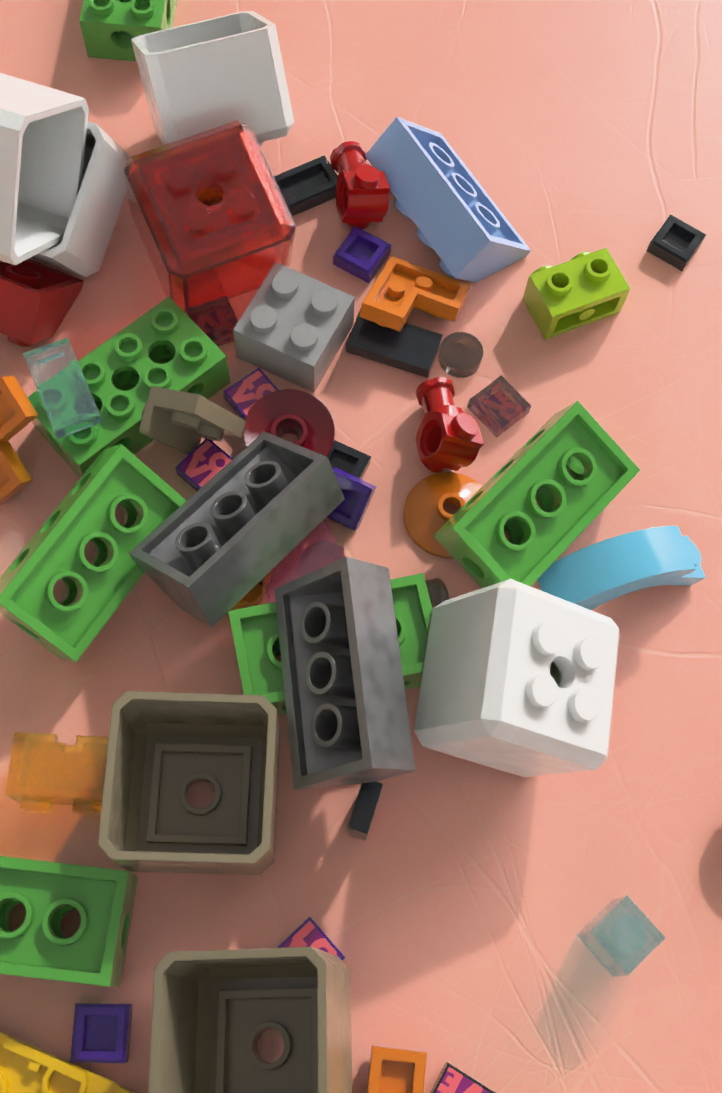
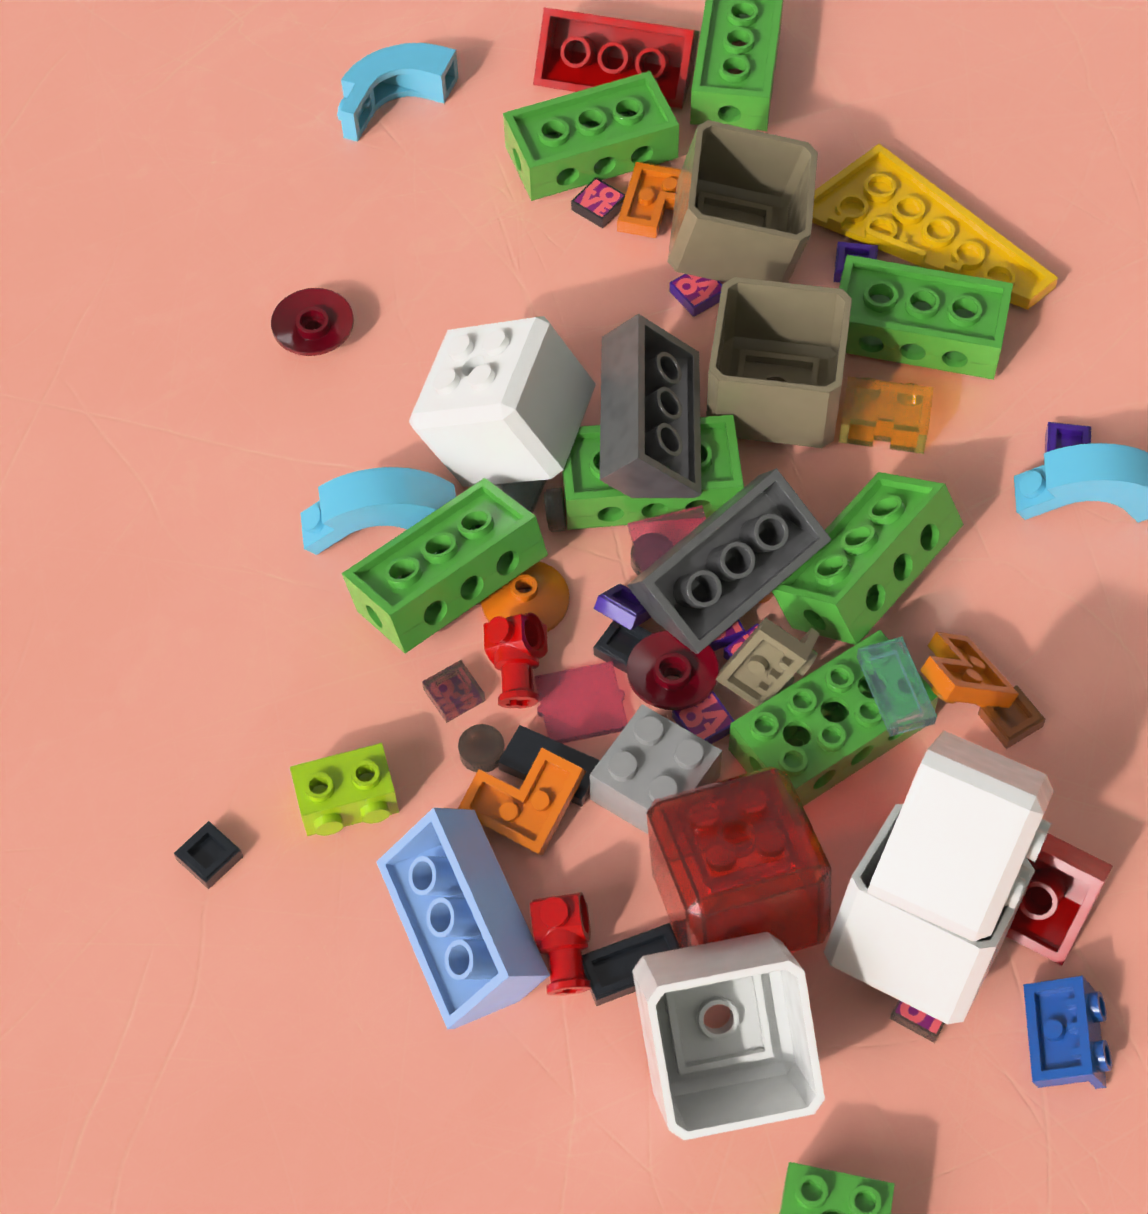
camera: 165 degrees left, 10 degrees down
(361, 254) = (569, 871): dark purple tile -> none
(374, 409) = (581, 702): none -> clear pink piece
(620, 936) = (458, 269): clear light blue brick -> none

